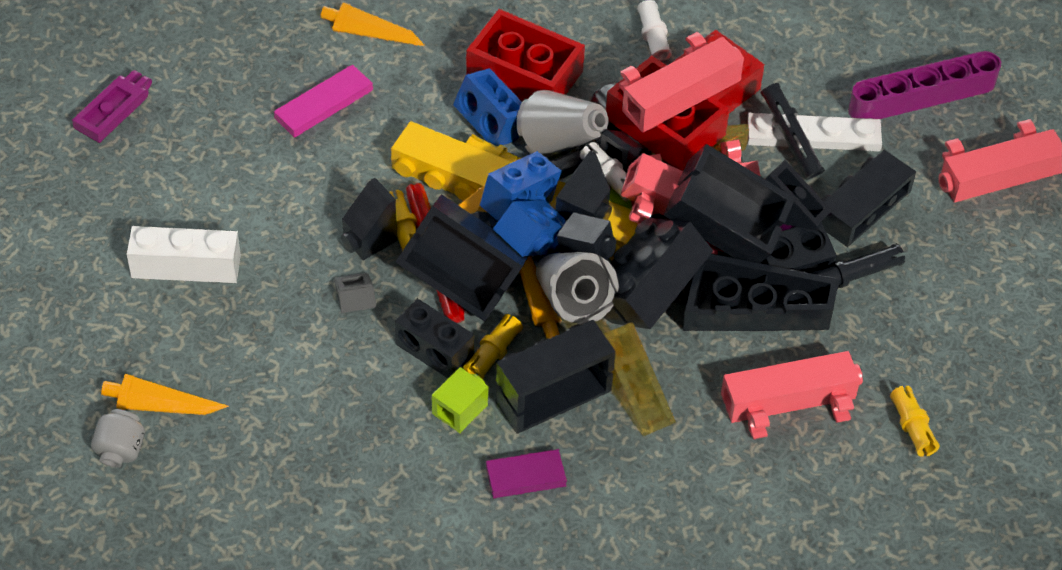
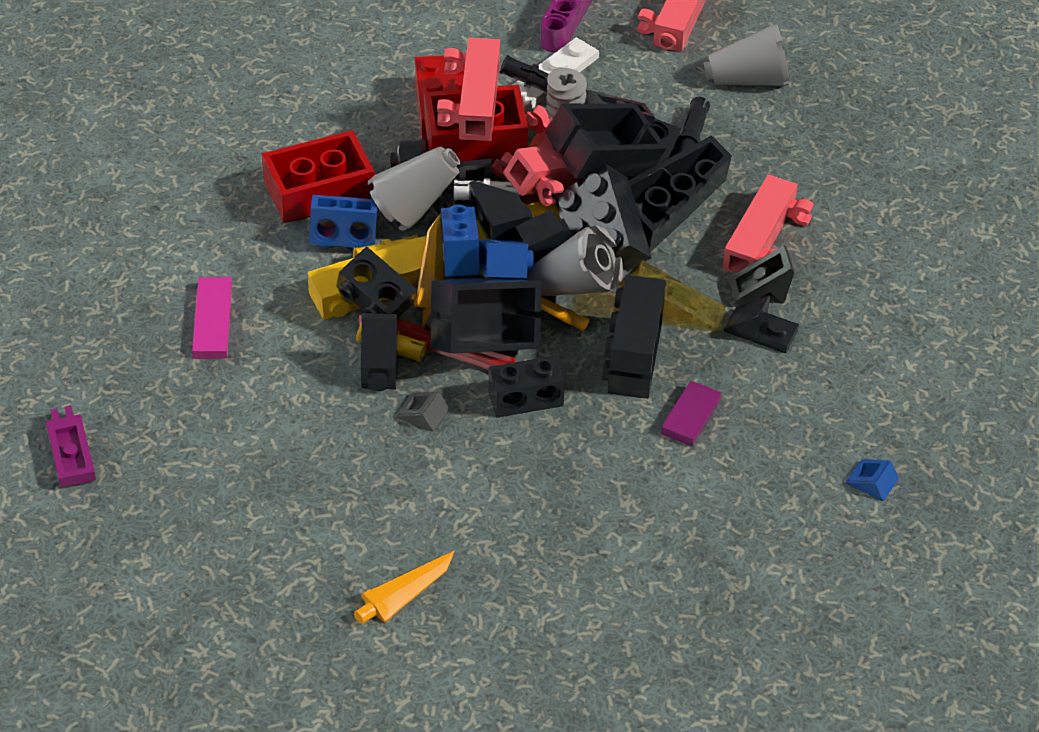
camera: 50 degrees left, 5 degrees down
(118, 438) = (424, 632): light grey head -> none
(184, 254) = (284, 486): white brick -> none
(357, 22) = (158, 249): light orange bar -> none
(433, 170) = (382, 283): none -> black brick
(460, 399) = (595, 406): lime brick -> none
(493, 346) = (565, 358): yellow pin -> none
(654, 30) = (363, 95): white pin -> none
(676, 464) = (755, 324): none -> black slope
(726, 425) = (769, 274): none -> pearl dark grey slope
(779, 143) = (564, 87): none -> light grey piece
(867, 196) = (638, 77): black brick -> none
(914, 421) = (846, 185): yellow pin -> none
(986, 255) = (750, 61): none -> light grey cone

